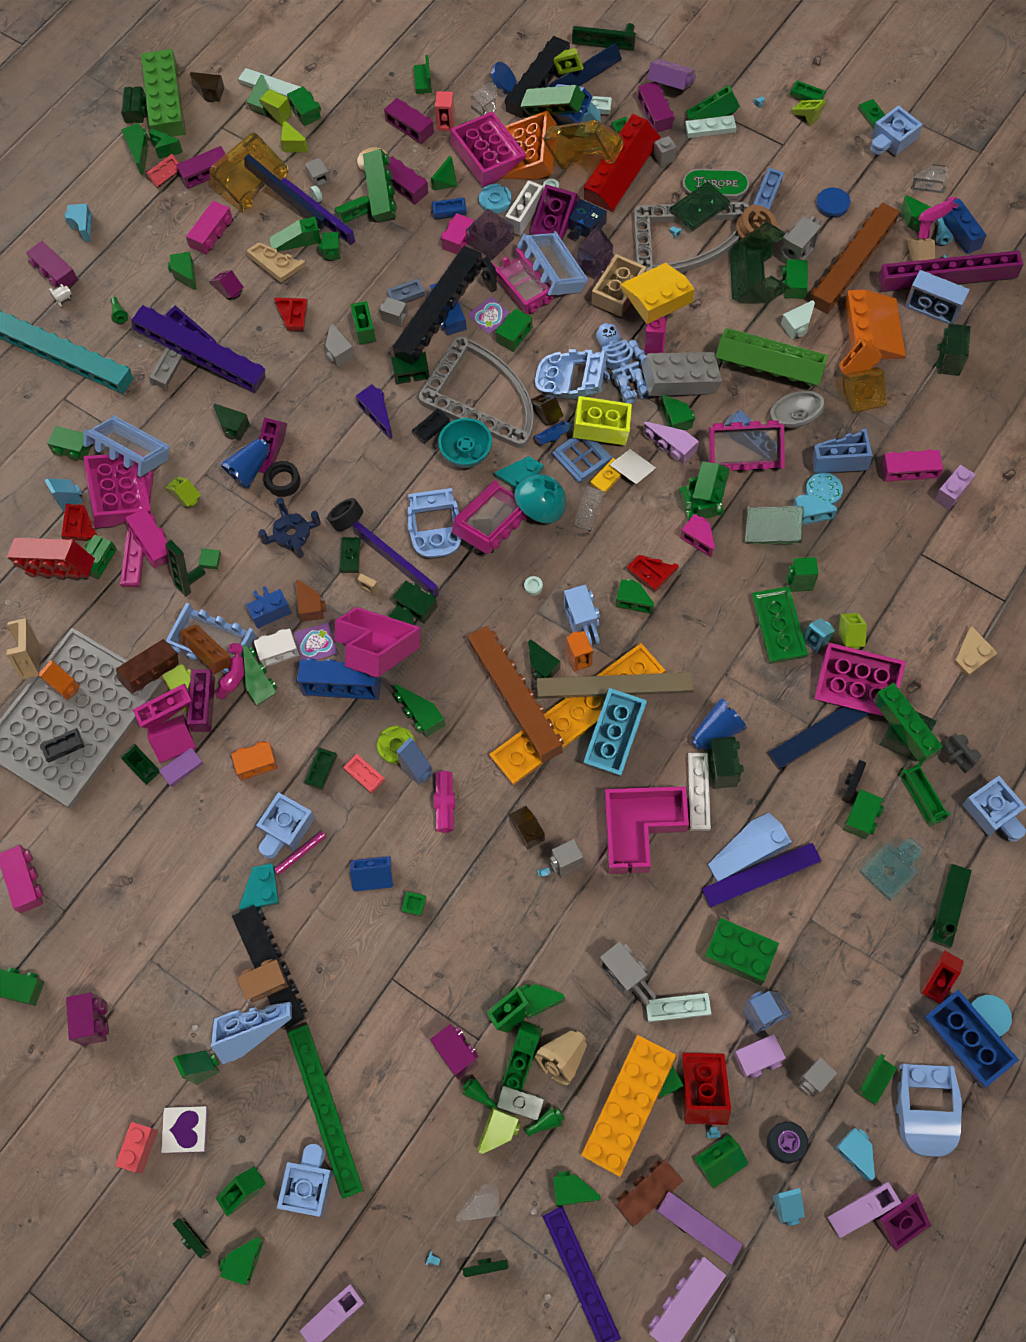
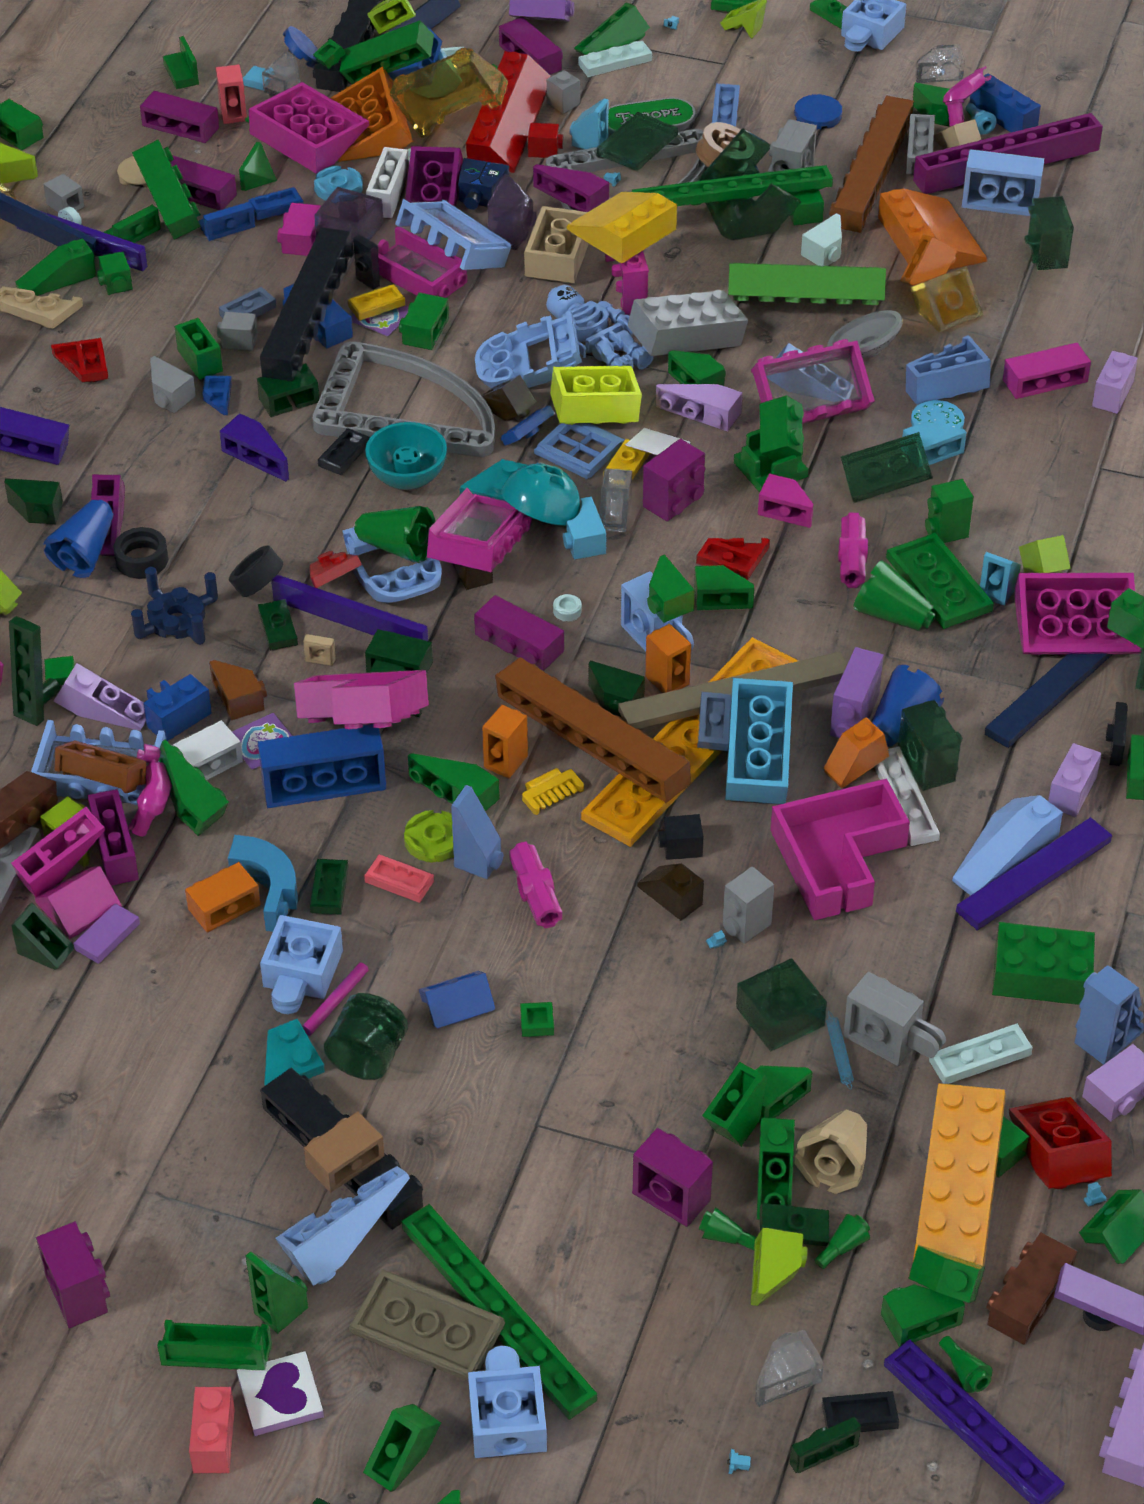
camera: 20 degrees left, 20 degrees down
(155, 1090) = (215, 1346): none -> green container
(226, 590) = (100, 700): none -> lavender slope
(280, 1111) = (426, 1325): none -> dark tan tile
(284, 739) = (270, 868): none -> dark azure arch
(304, 894) = (366, 1036): none -> clear green wheel
(368, 357) = (217, 392): none -> blue tile
(391, 522) = (331, 566): none -> red wing
(414, 216) = (228, 221): none -> blue panel
(438, 509) = (397, 531): none -> green cone
(457, 689) = (505, 741): none -> orange brick
(465, 95) = (254, 78): none -> medium azure tile
(478, 722) = (548, 783): none -> yellow piece
(488, 306) = (376, 302): none -> yellow plate
(494, 601) = (519, 632): none -> magenta brick
(516, 91) = (329, 53): none -> green plate
(516, 1247) = (872, 1410): none -> black tile
(545, 789) = (681, 837): none -> black brick
(562, 529) = (585, 532): none -> medium azure arch
(565, 936) = (781, 1004): none -> clear green container
(588, 608) = (669, 592): none -> green slope
(591, 708) = (714, 721): none -> sand blue plate
(591, 987) = (835, 1054): none -> medium azure piece
(591, 1239) = (971, 1371): none -> green cone
(597, 1173) = (946, 1274): none -> green slope
(630, 504) = (673, 479): none -> magenta brick
(639, 191) = (544, 140): none -> red brick
(644, 240) = (573, 187): none -> magenta slope
(672, 188) = (591, 126): none -> medium azure slope
(676, 755) = (856, 753): none -> orange slope
(690, 710) = (856, 690): none -> medium lavender brick
(730, 586) = (853, 550): none -> dark pink piece
(742, 637) = (893, 599): none -> green cone
(748, 265) = (743, 186): none -> green plate
(811, 812) = (1074, 779): none -> lavender brick
(893, 245) = (920, 138): none -> light grey container

